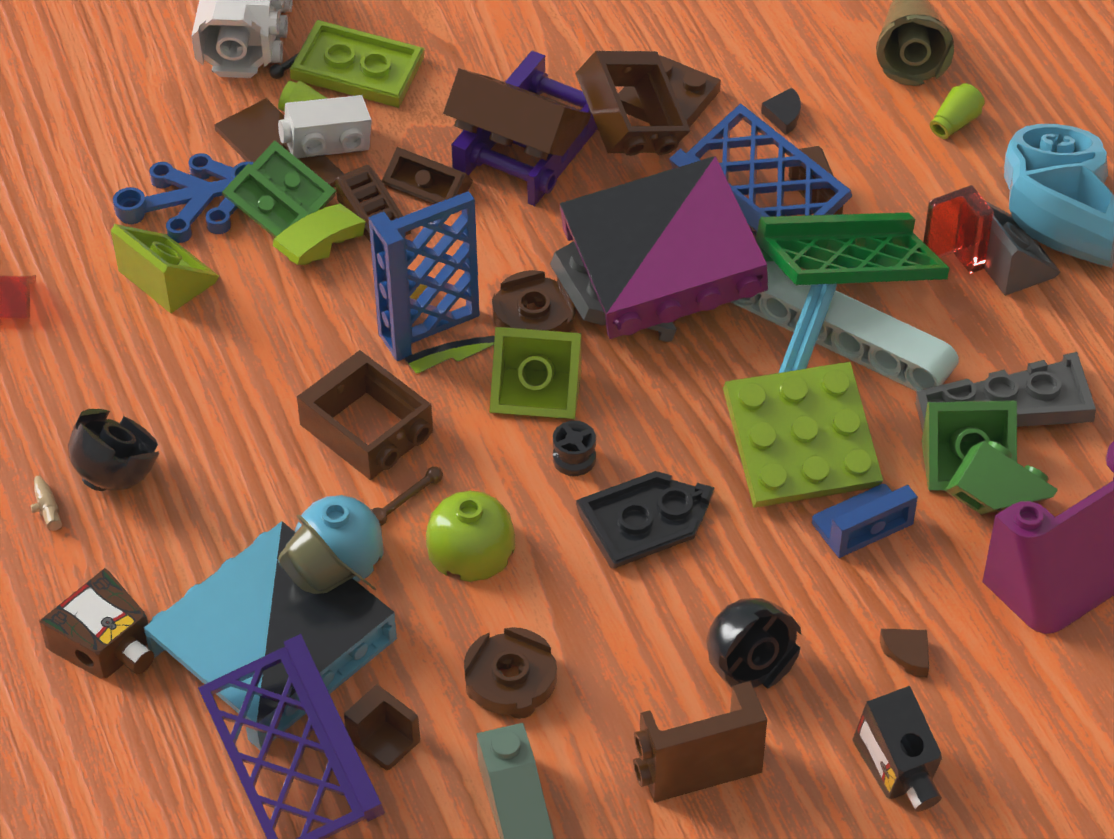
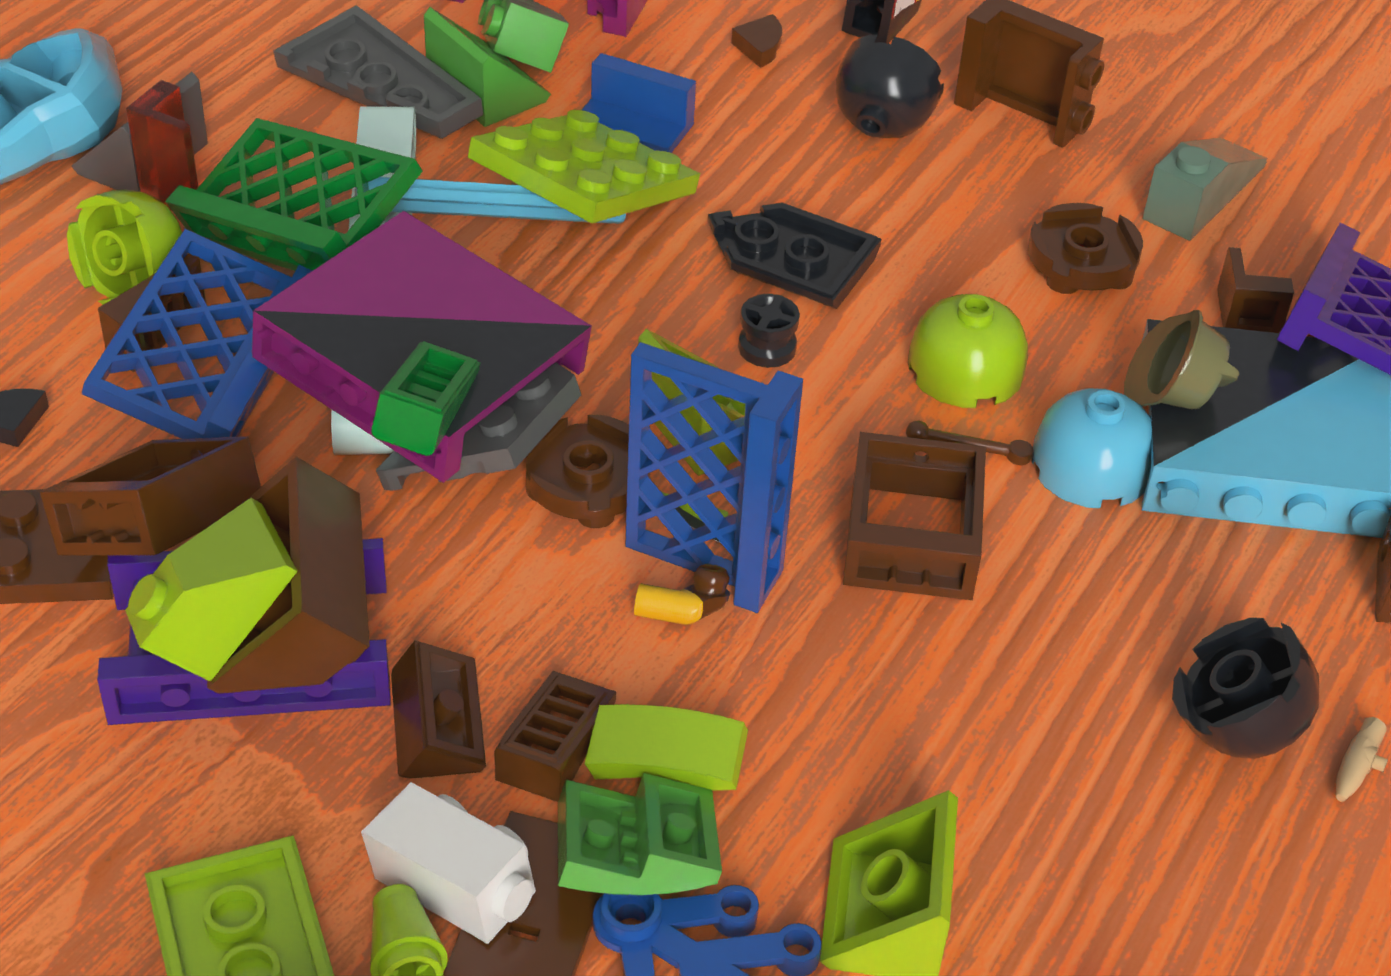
camera: 130 degrees left, 5 degrees down
(525, 66) = (211, 591): none -> lime slope
(581, 167) = (419, 405): none -> green slope
(881, 186) = (120, 240): none -> lime cylinder

